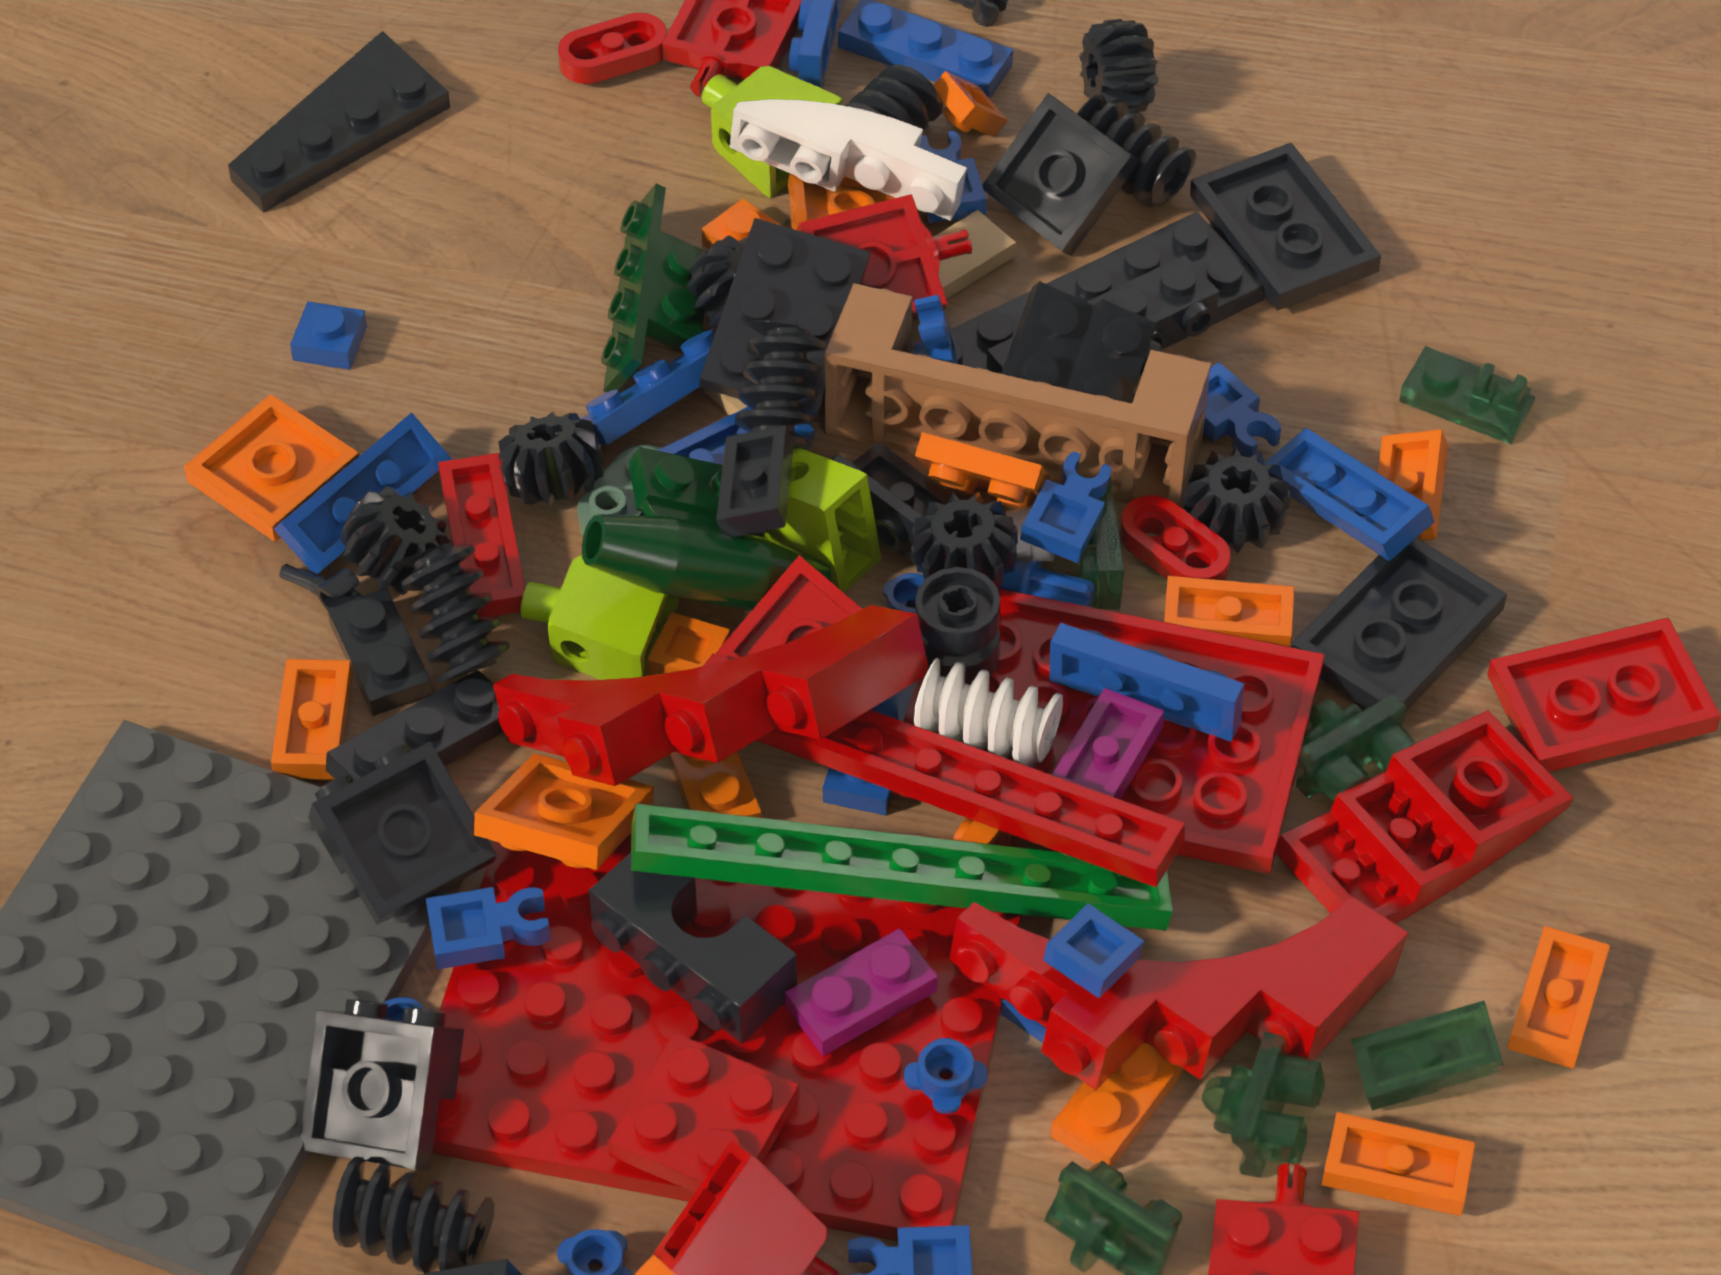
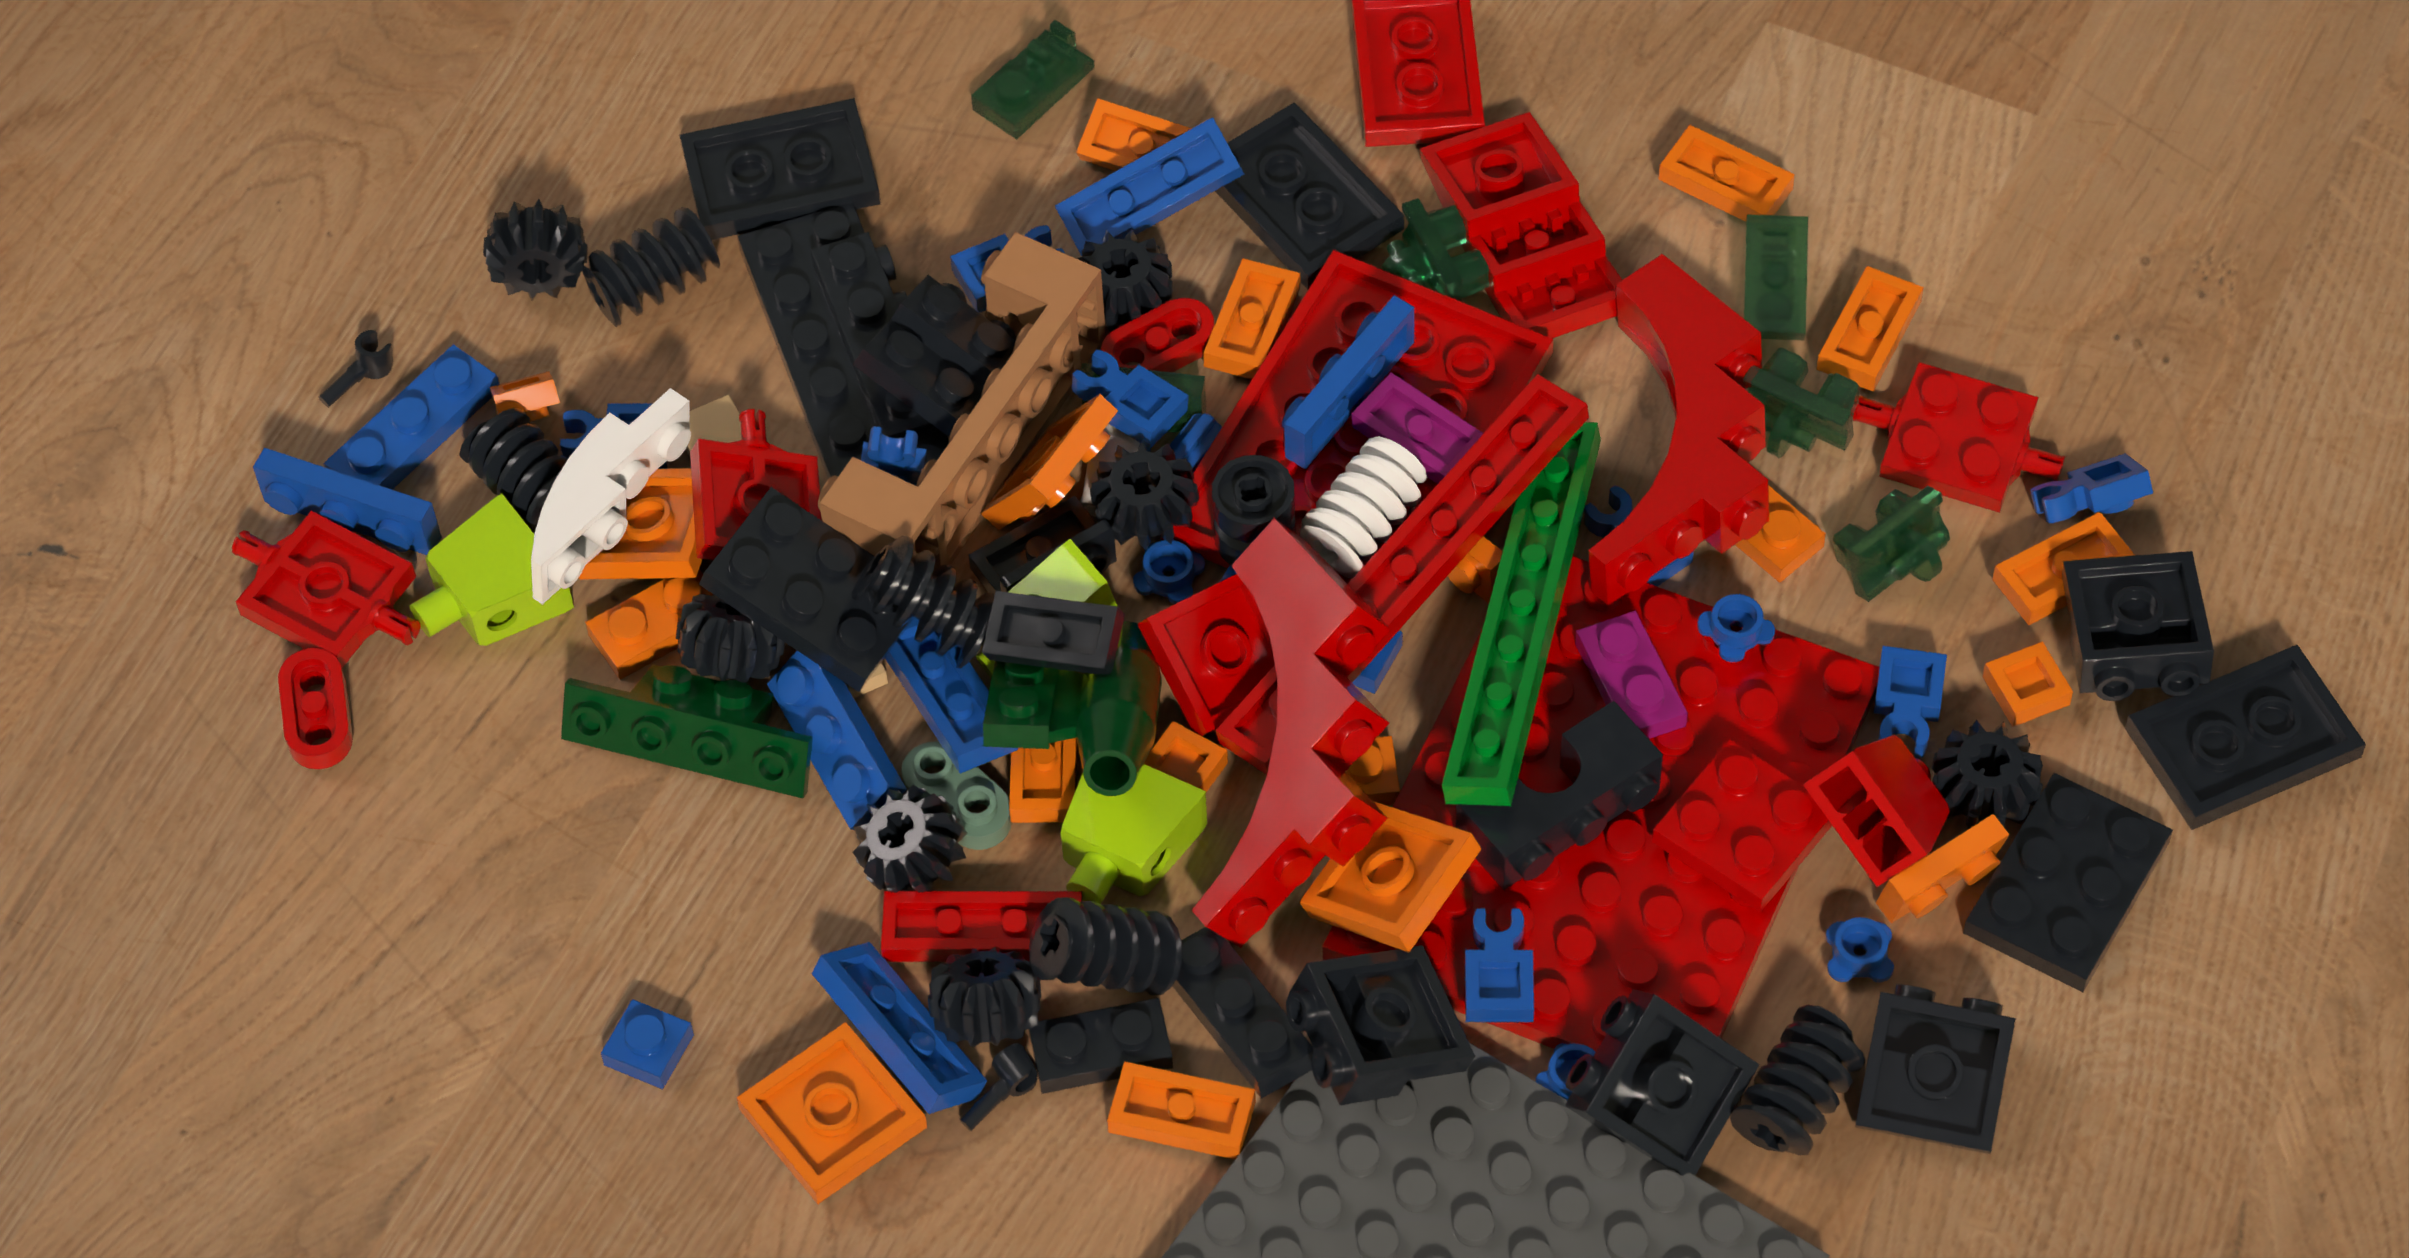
camera: 75 degrees left, 5 degrees up
(345, 118) = (319, 988): black wing -> none
(1059, 174) = (666, 329): black plate -> none
(1093, 950) = (1675, 461): blue plate -> none

